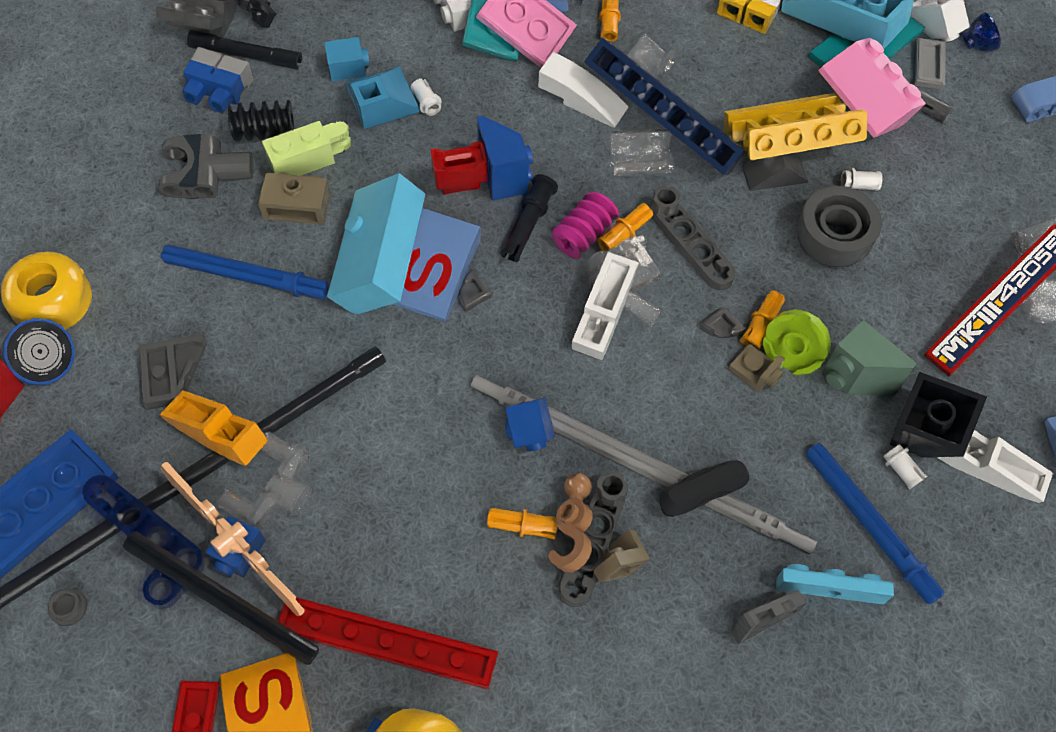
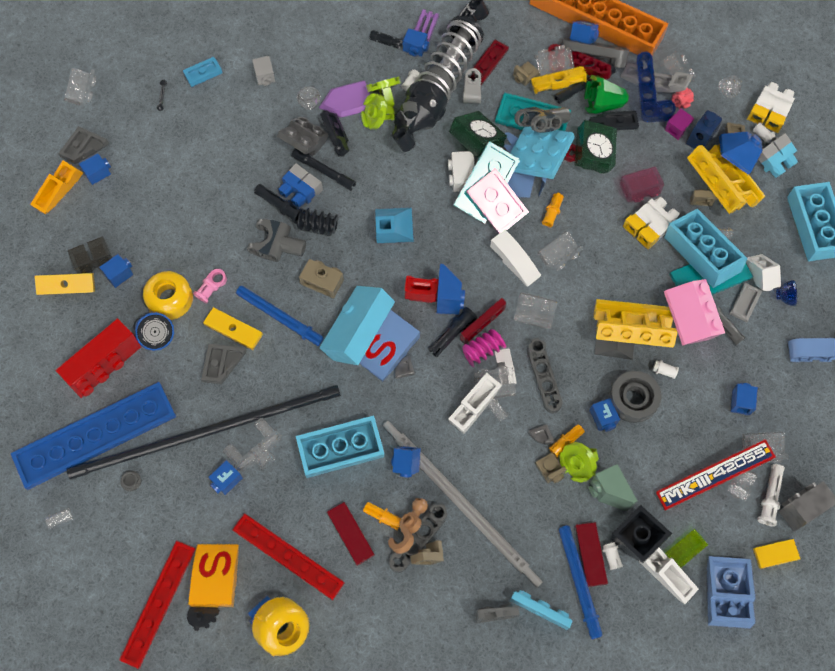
camera: 20 degrees right, 5 degrees up
(113, 260) = (210, 286): none -> bright pink connector
(146, 525) = (178, 454): clear blue beam -> none
(156, 309) = (242, 334): none -> yellow tile
(201, 115) = (285, 206): none -> black pin
(215, 427) = (234, 406): light orange slope -> none
(221, 597) = (210, 506): black axle -> none
(232, 539) = (223, 474): light nougat piece -> none
(306, 148) = (338, 248): yellowish green hinge -> none
(346, 59) = (380, 194): dark azure brick -> none
(413, 435) = (340, 446): none -> medium azure brick
(429, 102) = (420, 234): white pin -> none
(479, 569) = (350, 533): none -> dark red tile
(569, 189) = (484, 320): none -> dark red tile
(625, 227) = (506, 357): light orange axle -> none
(665, 106) = (558, 287): dark blue brick -> none
(703, 487) = (490, 530): black piece -> none
(804, 266) = (604, 415): none -> blue brick
(871, 474) = (591, 554): none -> dark red tile
(991, 185) = (744, 399): none -> blue brick
(1008, 417) = (687, 548): none -> clear neon green tile

